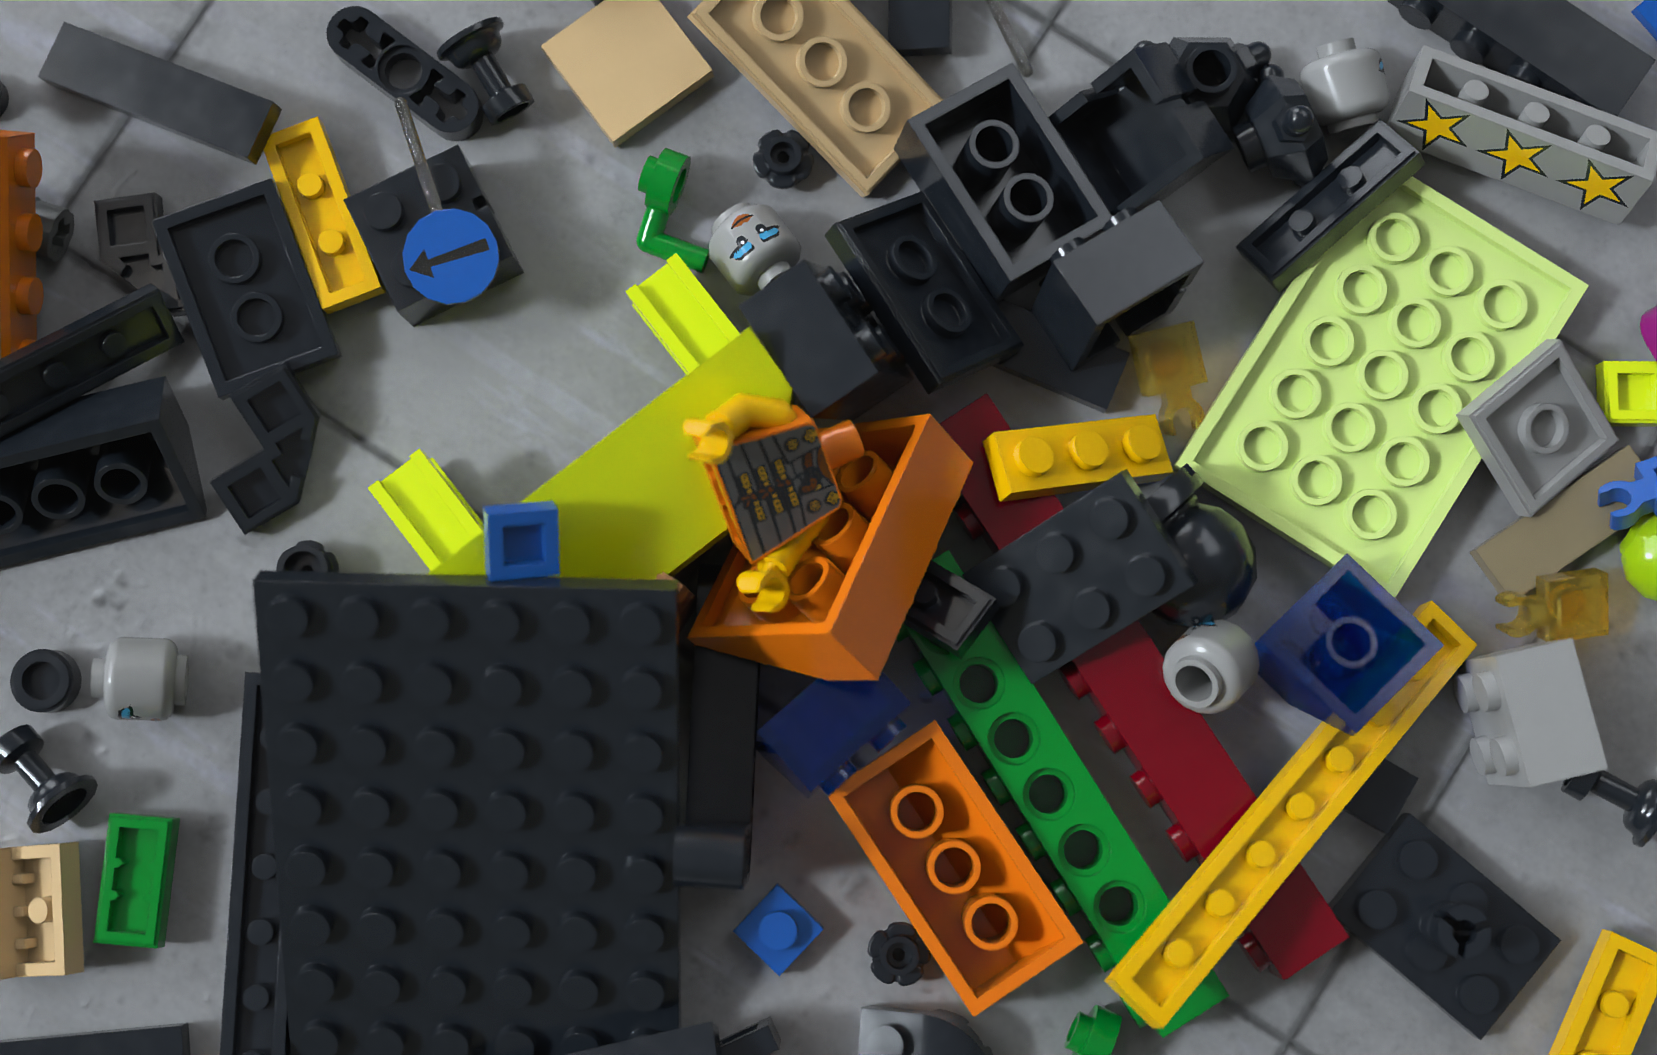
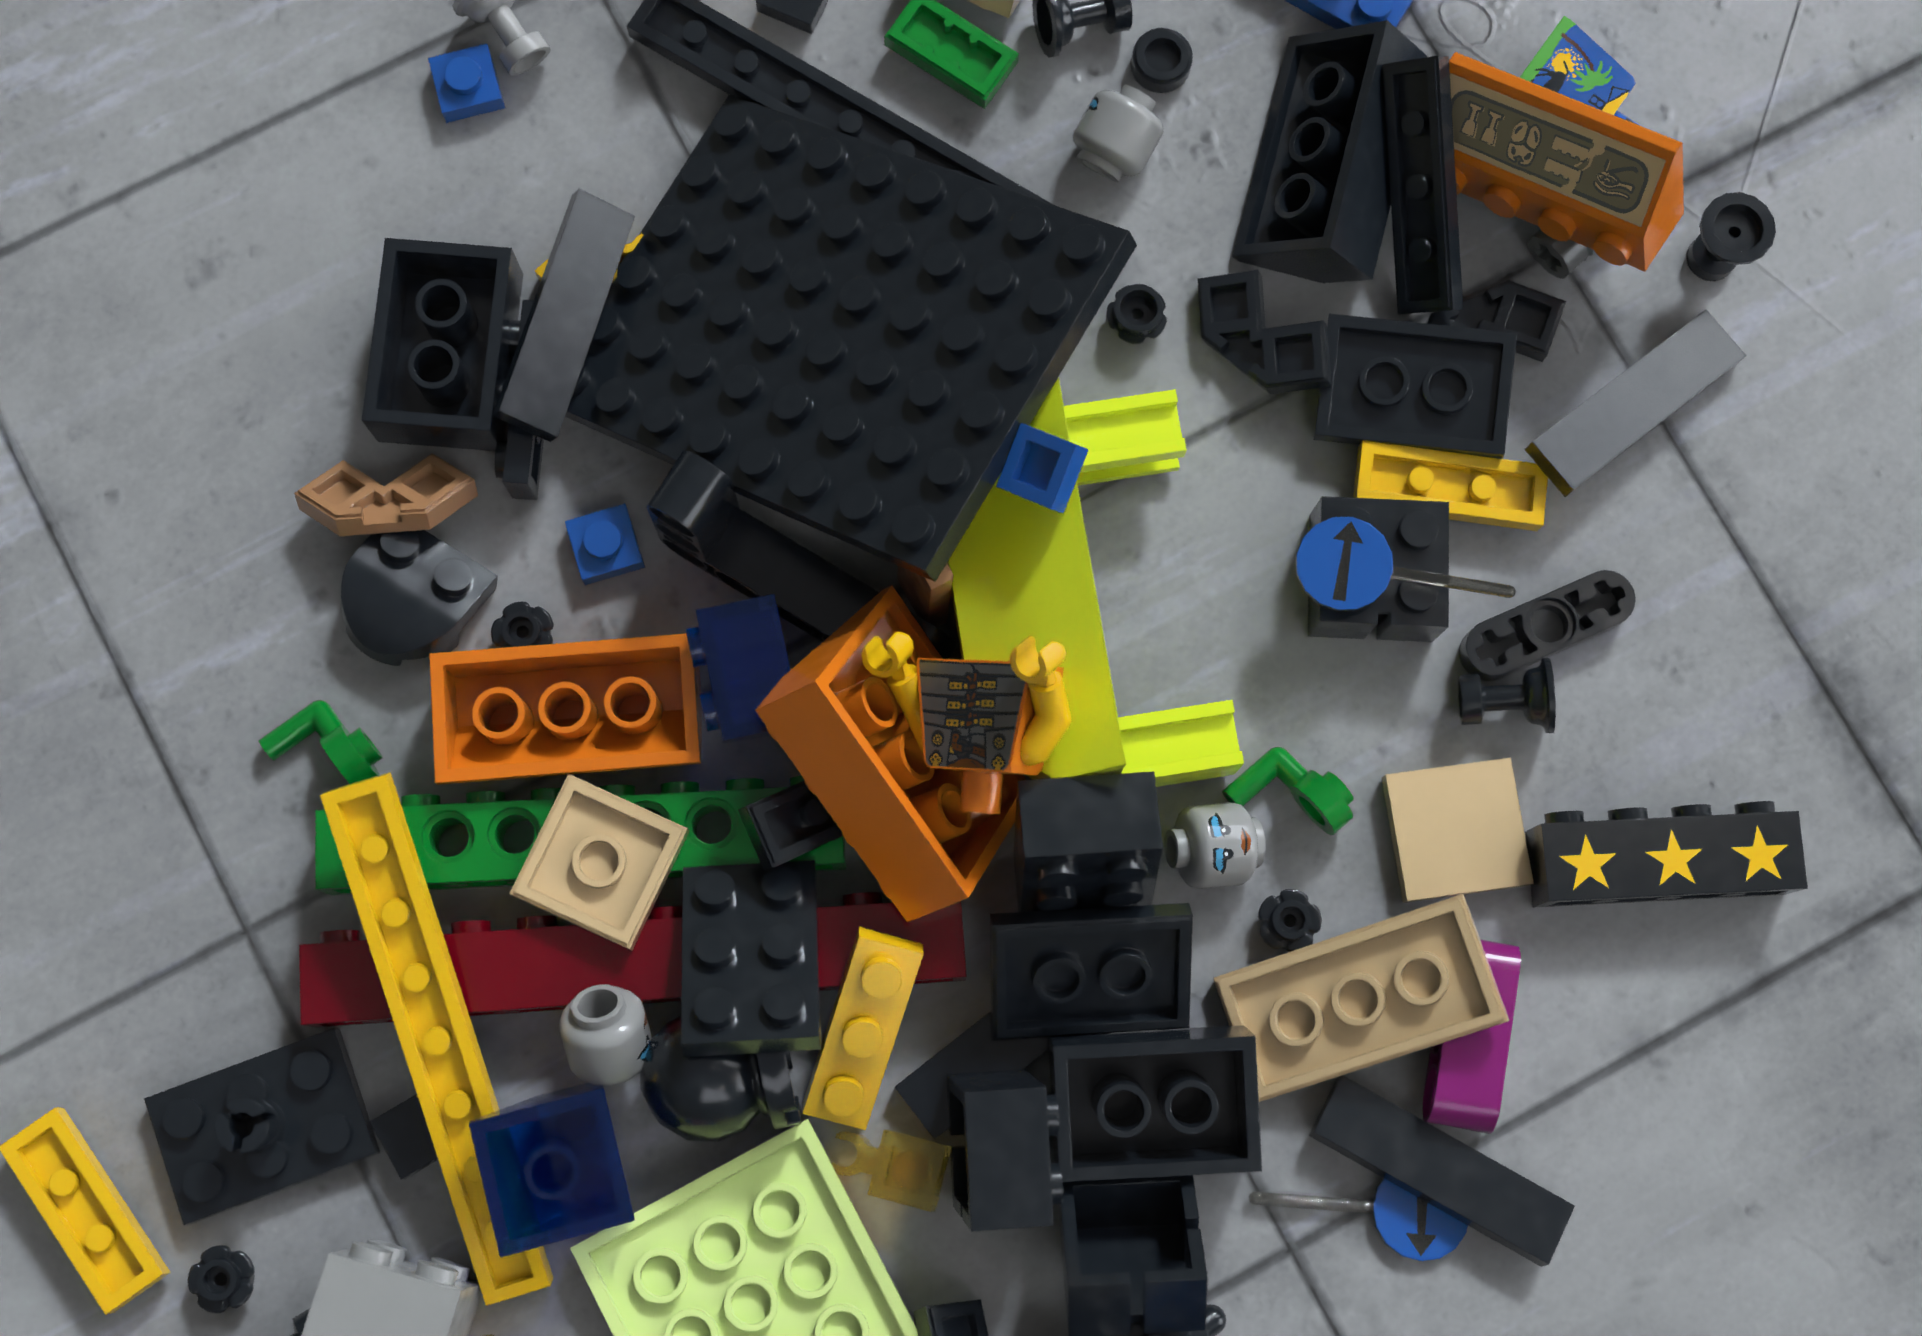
camera: 110 degrees right, 5 degrees down
(1068, 758) = (600, 862): none -> tan tile
(1566, 878) = (239, 1283): none -> black plate

